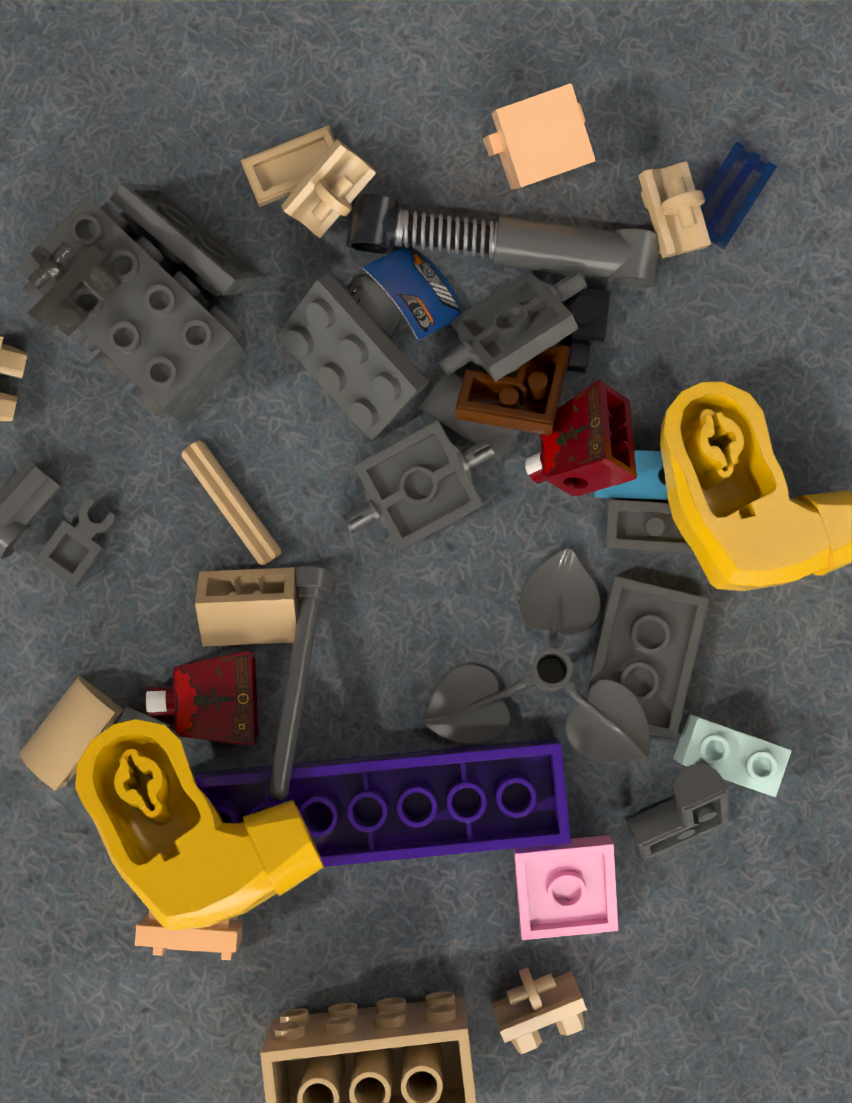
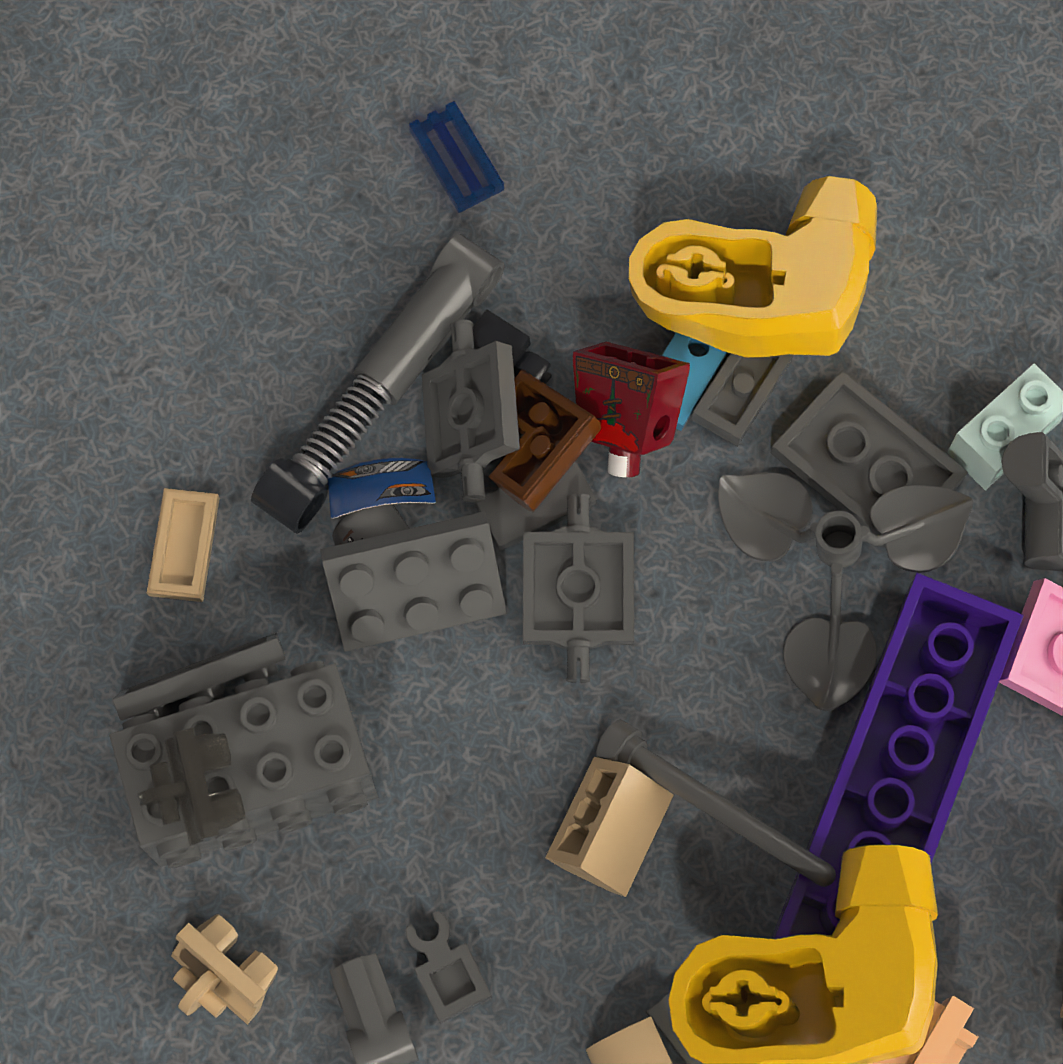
camera: 65 degrees left, 15 degrees down
(211, 699) = (685, 906): torso -> none
(231, 502) = (491, 788): tan axle -> none
(328, 188) = (230, 514): tan hips -> none
(540, 137) = (304, 290): light nougat plate -> none
(674, 209) = (442, 208): tan hips -> none

